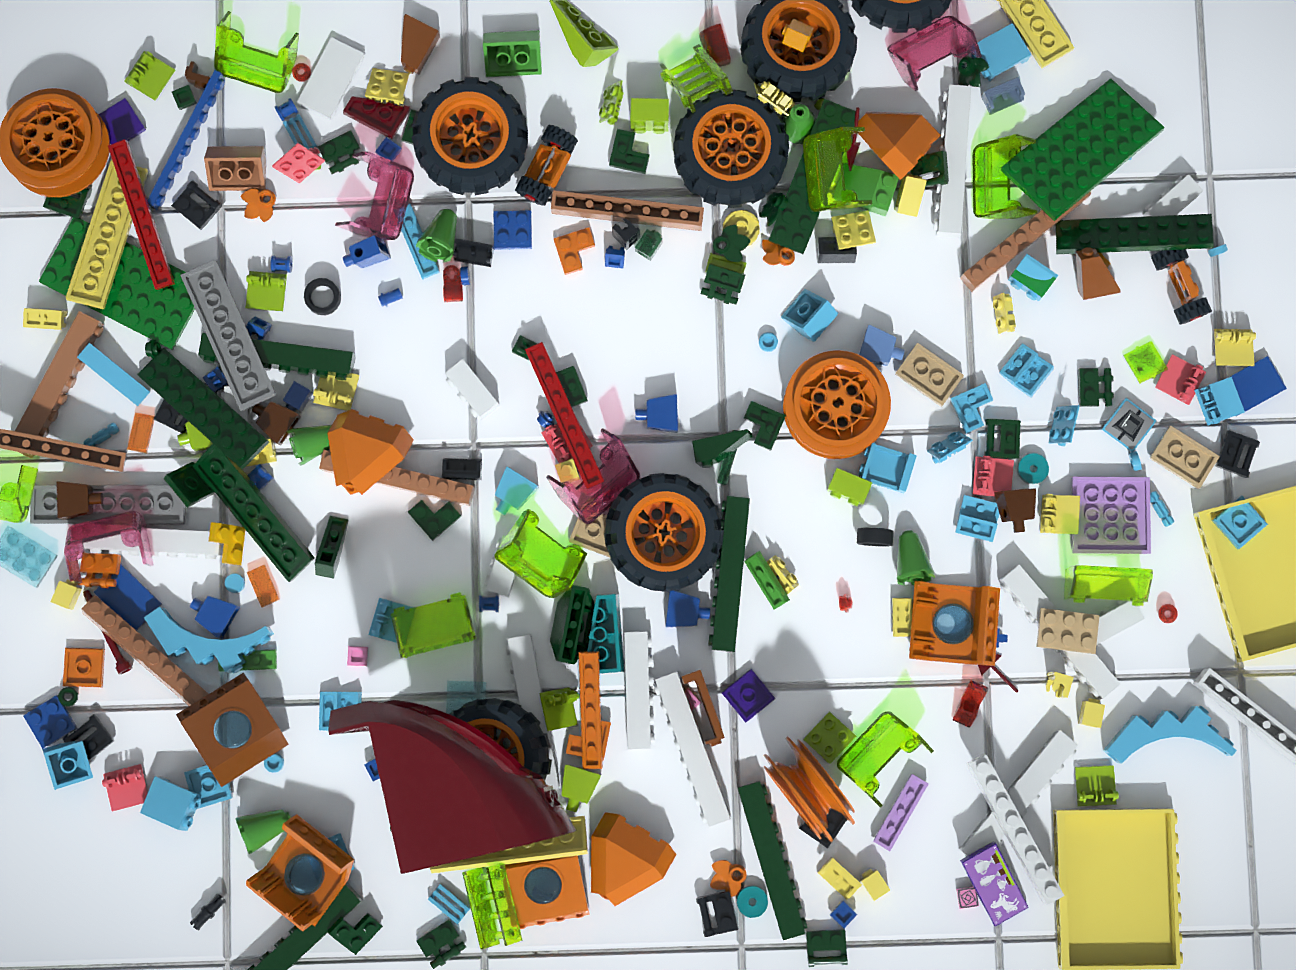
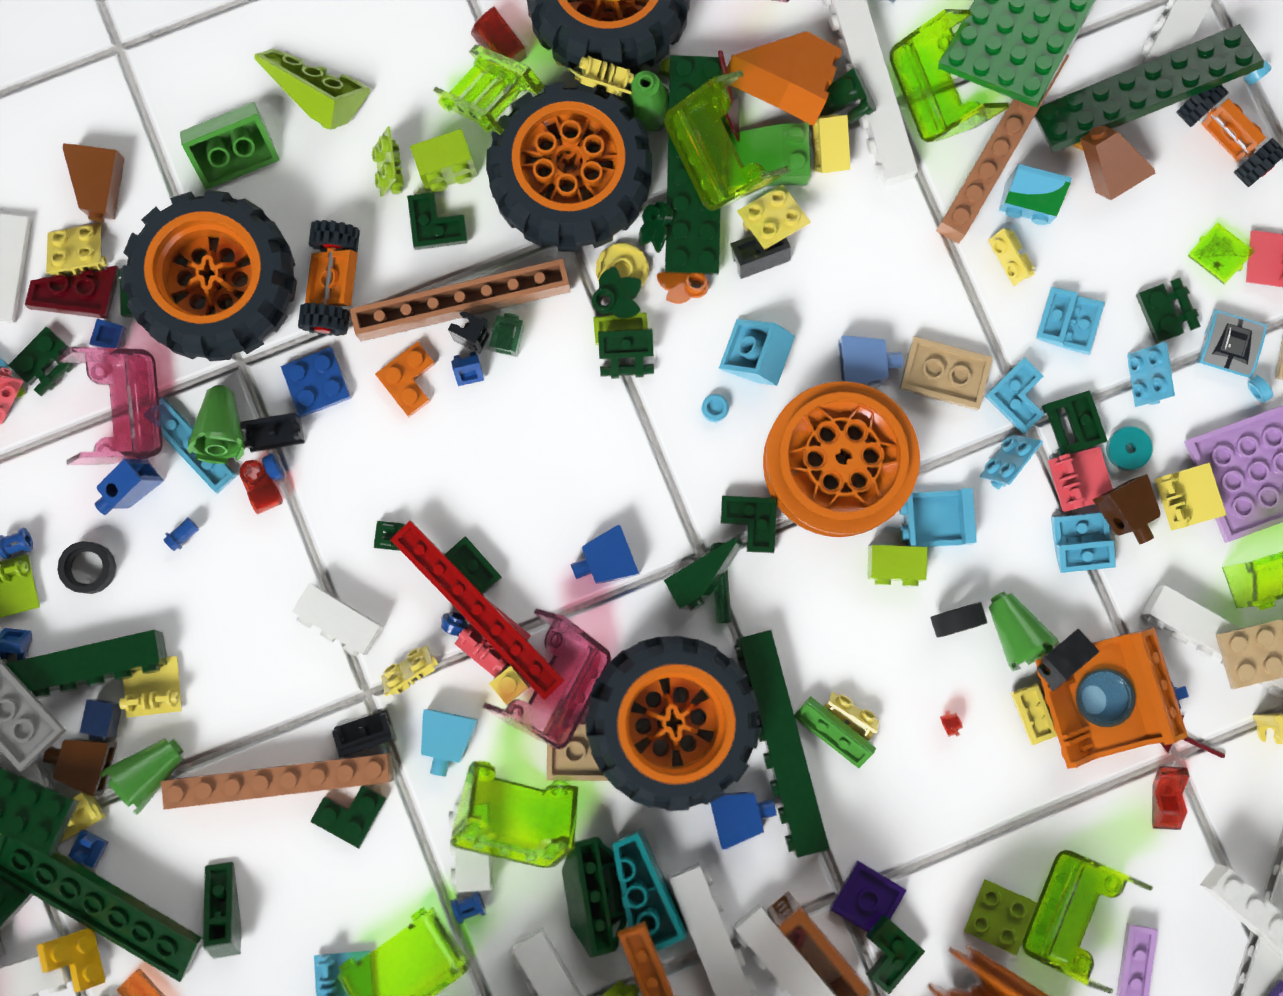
camera: 25 degrees left, 0 degrees up
(365, 449) = (218, 760): orange panel -> none
(496, 439) = (417, 662): none -> light yellow hinge
(754, 737) = (898, 956): none -> dark green plate
(935, 587) = (1067, 659): none -> black hinge

